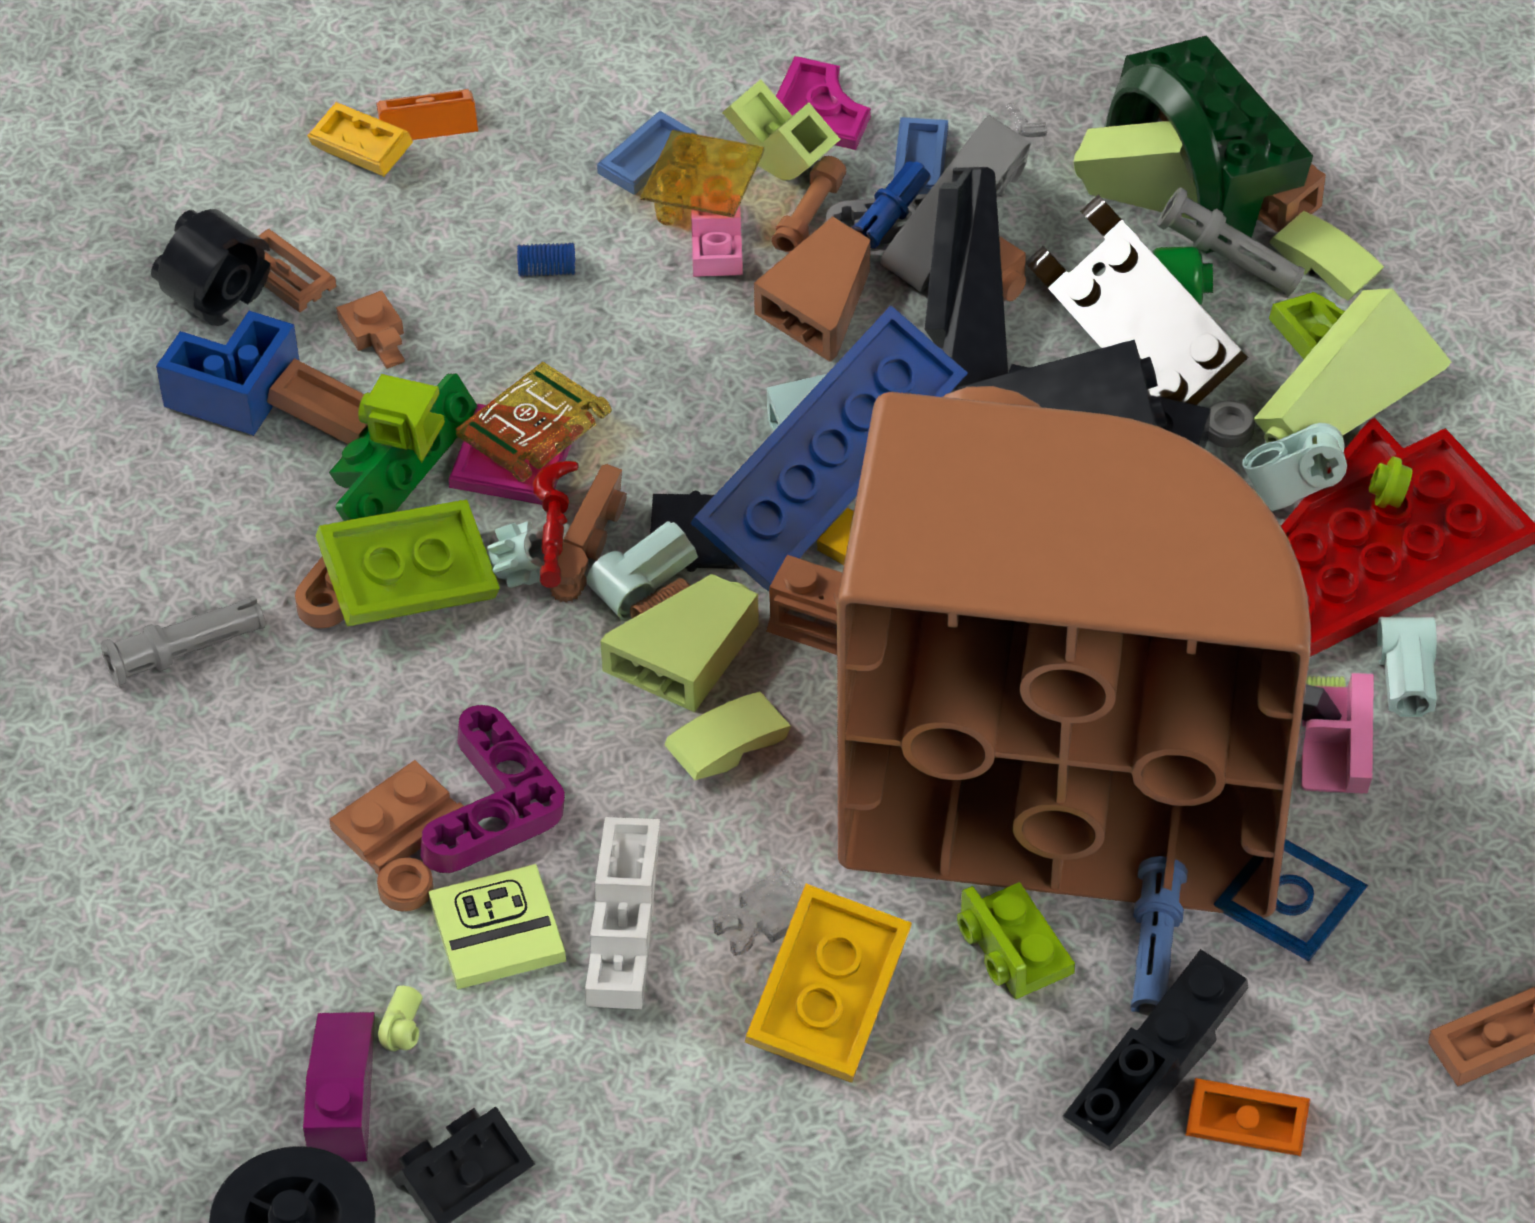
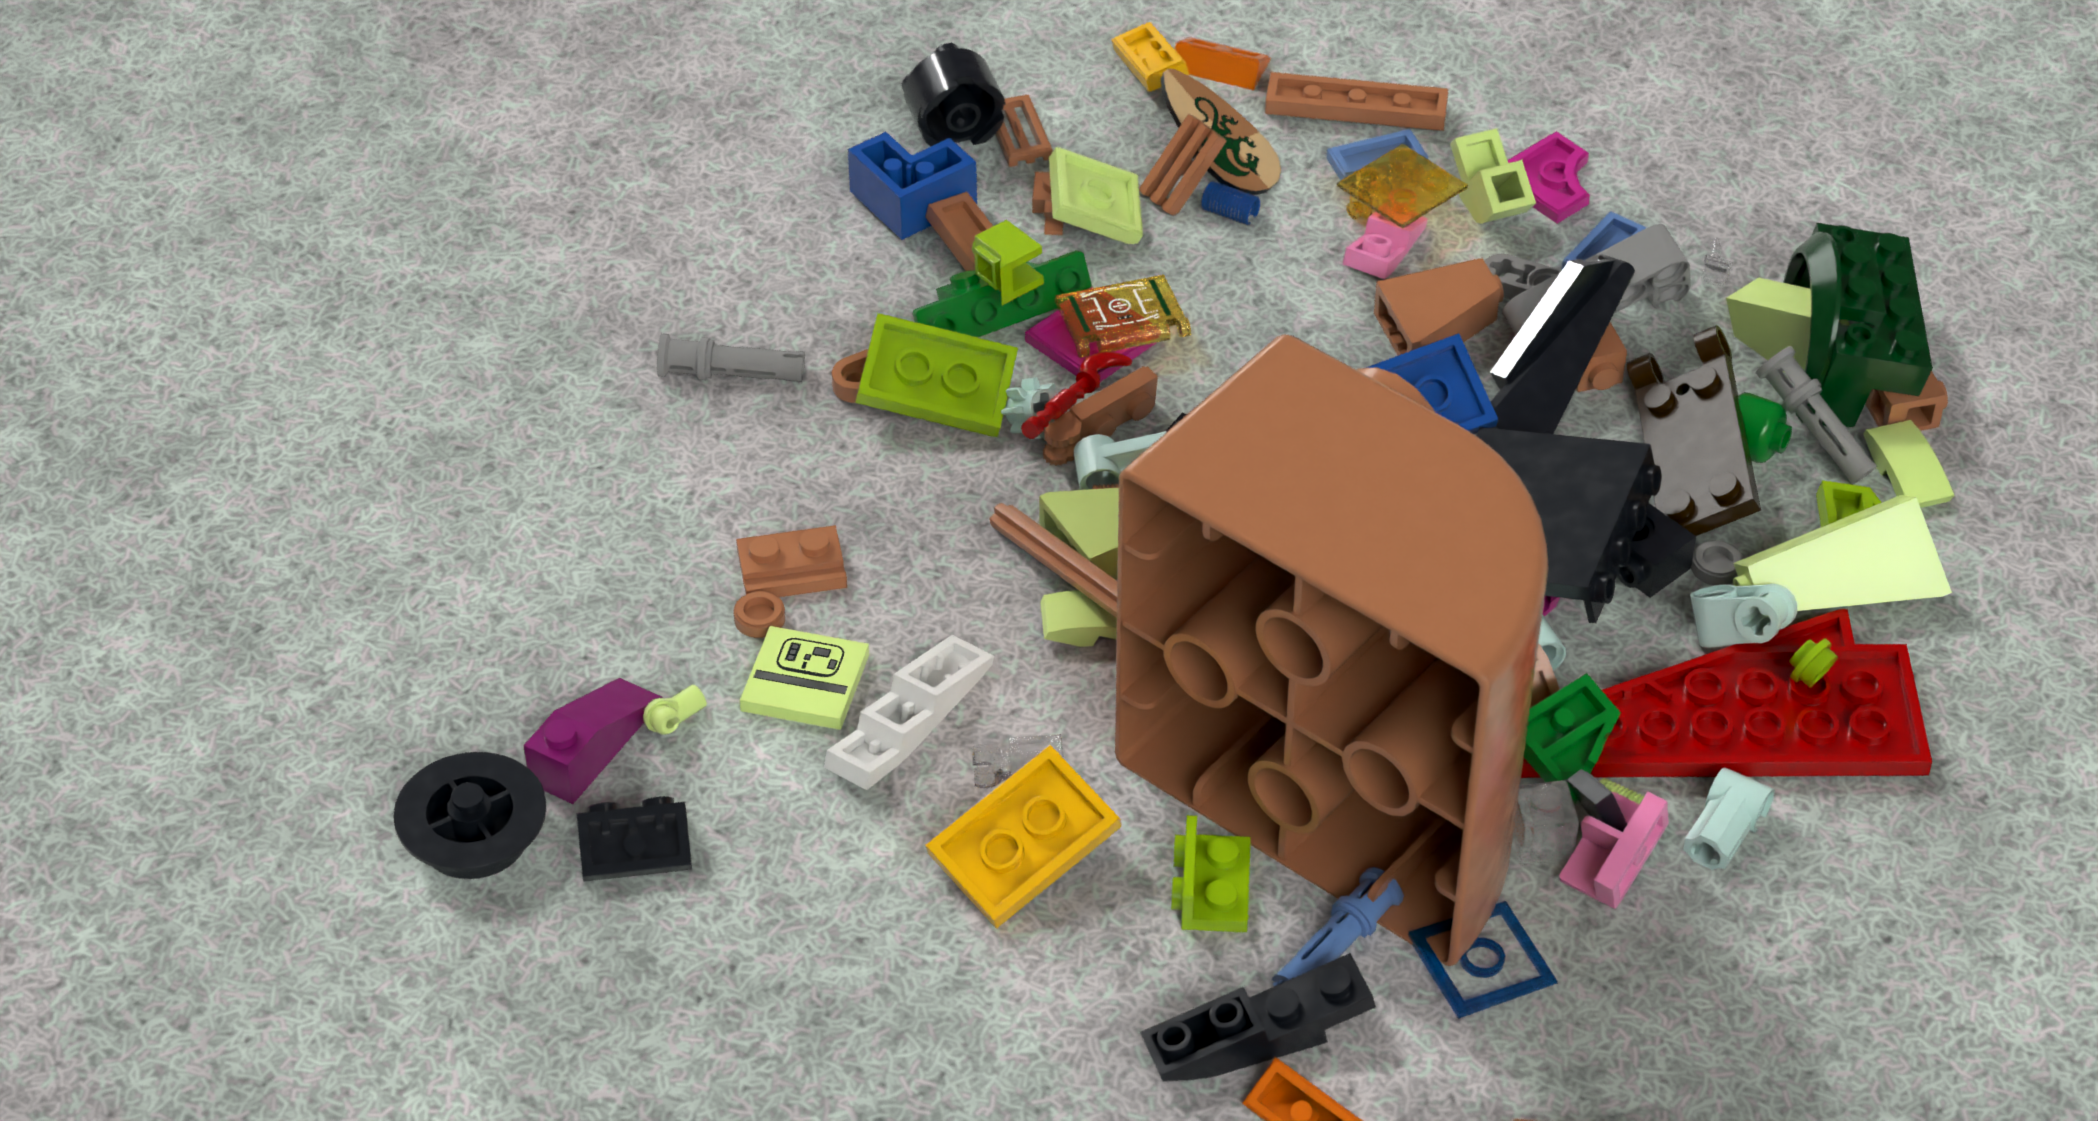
camera: 30 degrees right, 5 degrees down
(418, 308) = (1095, 196): none -> yellowish green tile
(465, 238) = (1178, 161): none -> nougat tile
(493, 194) = (1247, 157): none -> shield
(507, 803) = (893, 584): magenta beam -> none
(589, 102) = (1356, 101): none -> nougat plate
(677, 697) = (1056, 556): none -> nougat axle
(824, 178) = (1510, 232): nougat bar -> none
(892, 202) = (1540, 267): blue axle -> none

